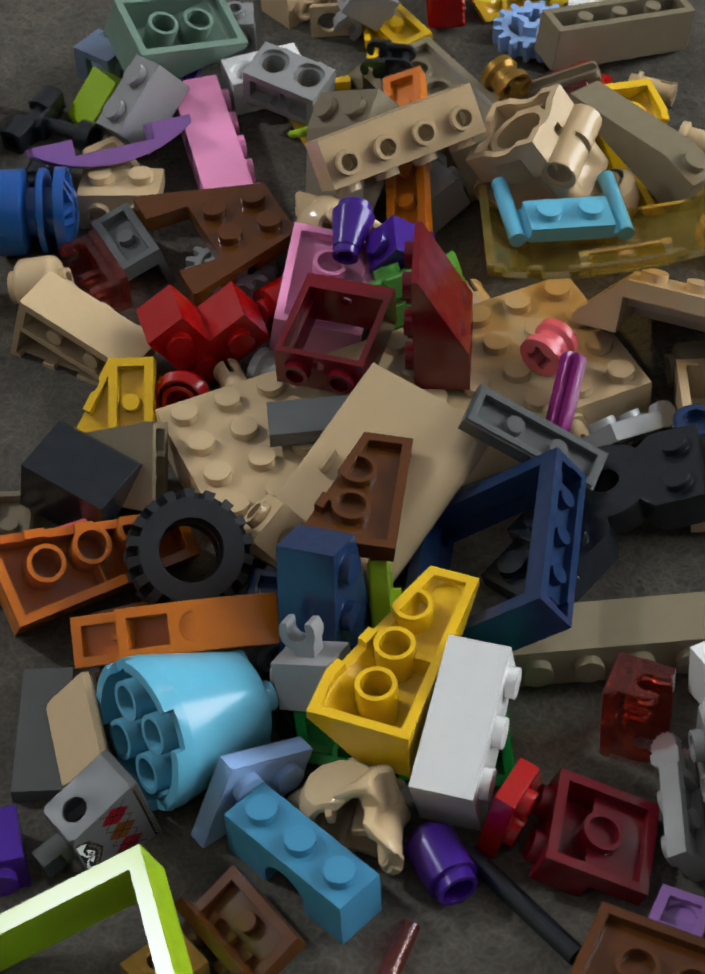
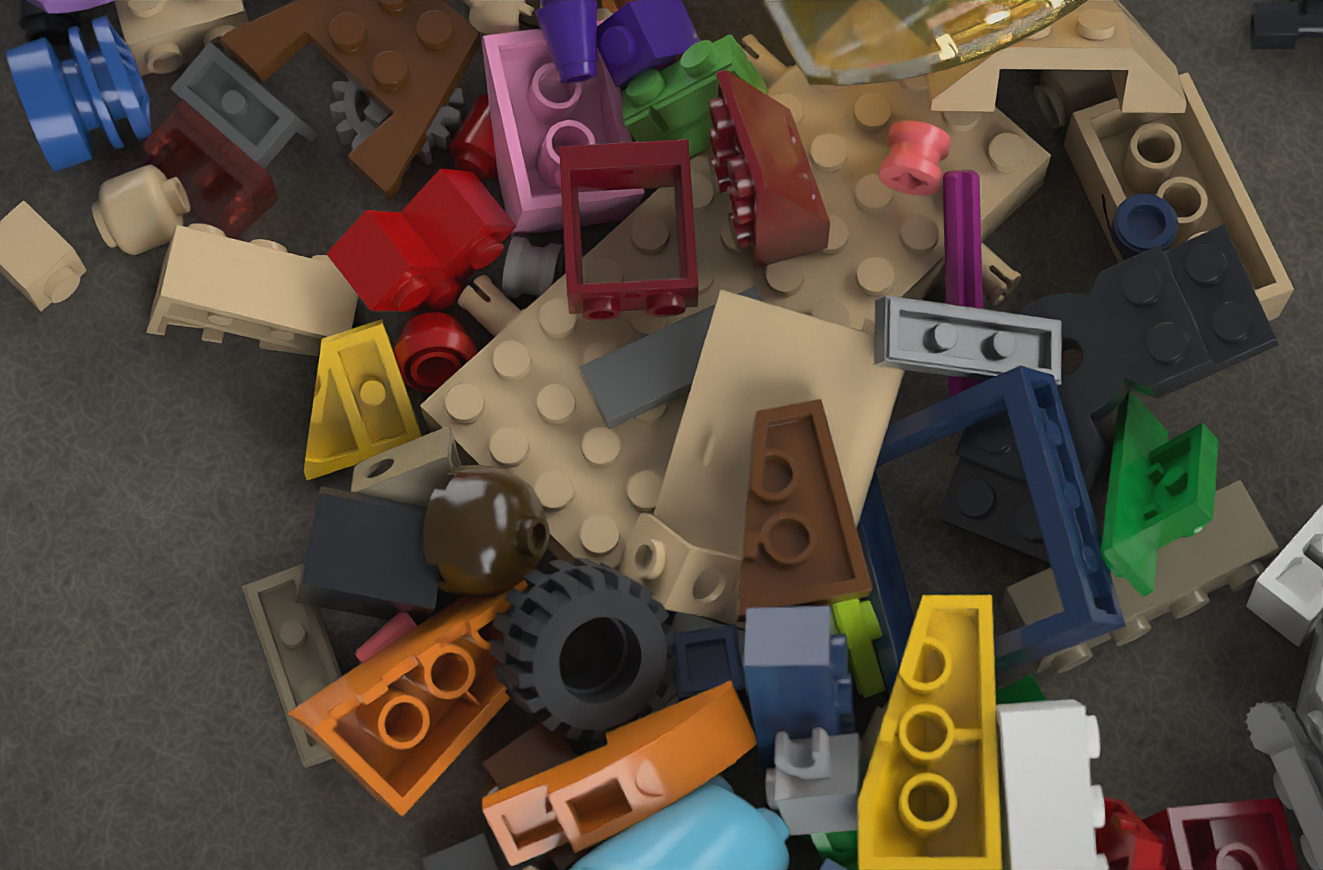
camera: 20 degrees left, 25 degrees up
(150, 466) = (484, 531): none -> dark brown cylinder
(629, 570) = (1154, 491): none -> green bracket
(631, 426) = (1046, 242): light grey hinge -> none
(635, 705) = (1211, 673): clear red hinge -> none

